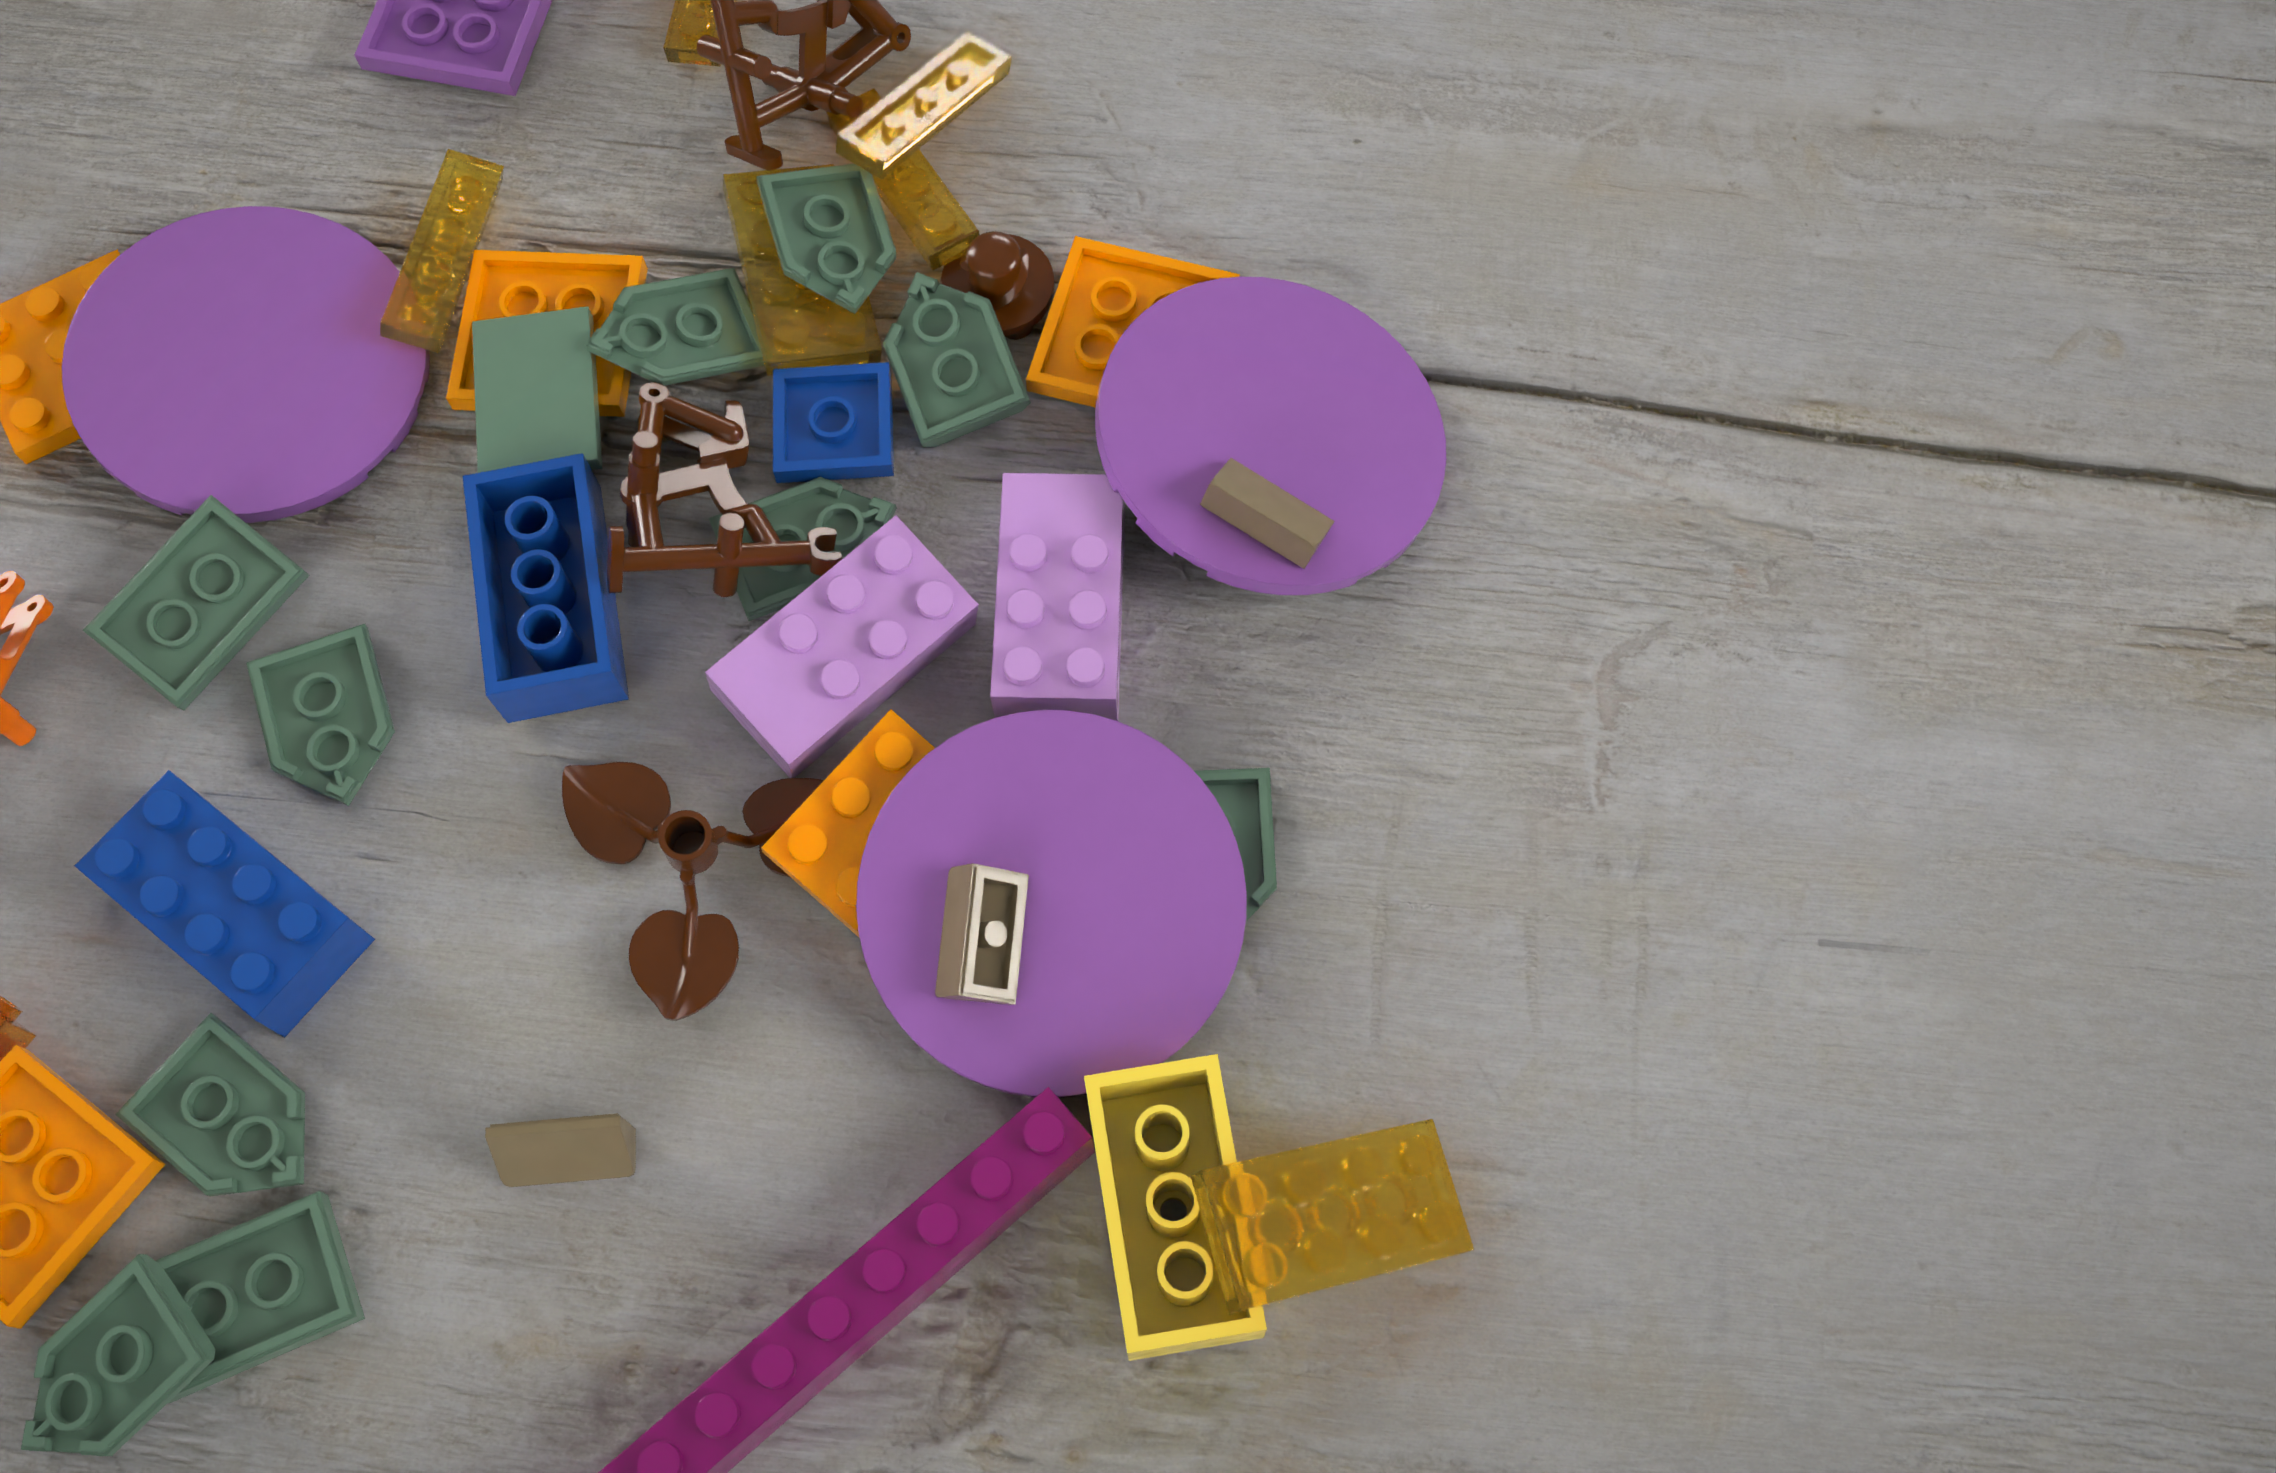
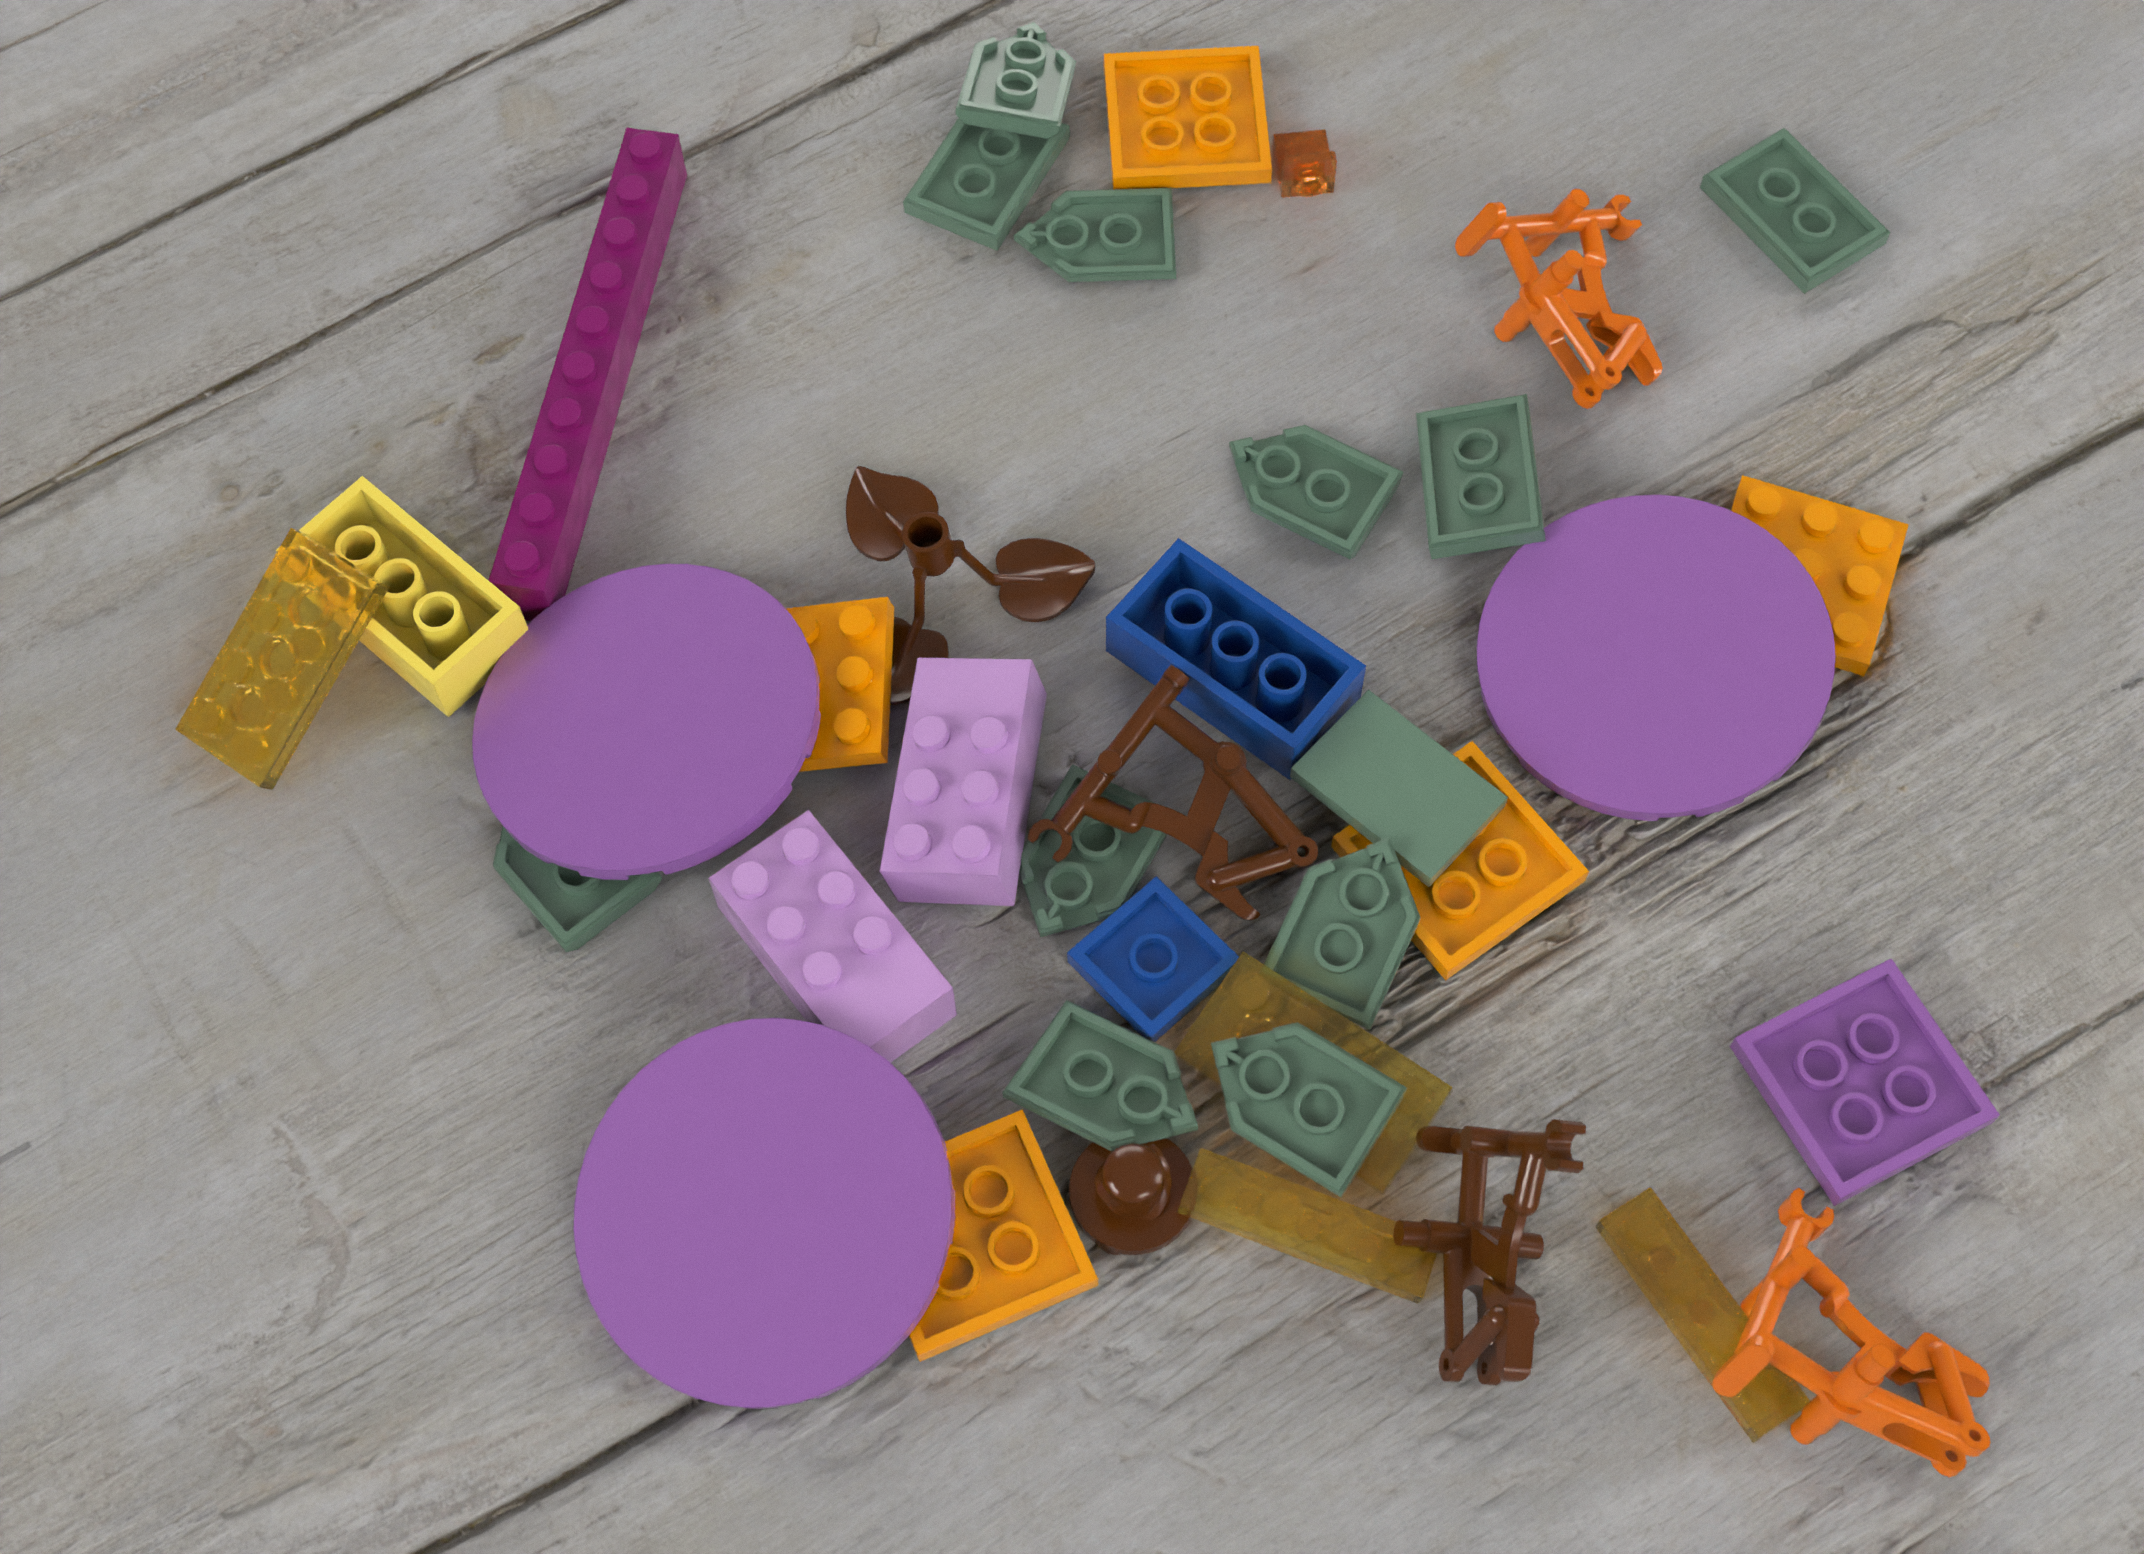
camera: 140 degrees right, 5 degrees down
(225, 904) = (1233, 326): blue brick -> none
(442, 251) = (1612, 850): clear yellow plate -> none
(563, 1150) = (865, 368): dark tan slope -> none
(923, 105) = (1342, 1293): clear yellow plate -> none
(982, 934) = (671, 647): dark tan slope -> none
(1266, 512) = (697, 1109): dark tan slope -> none

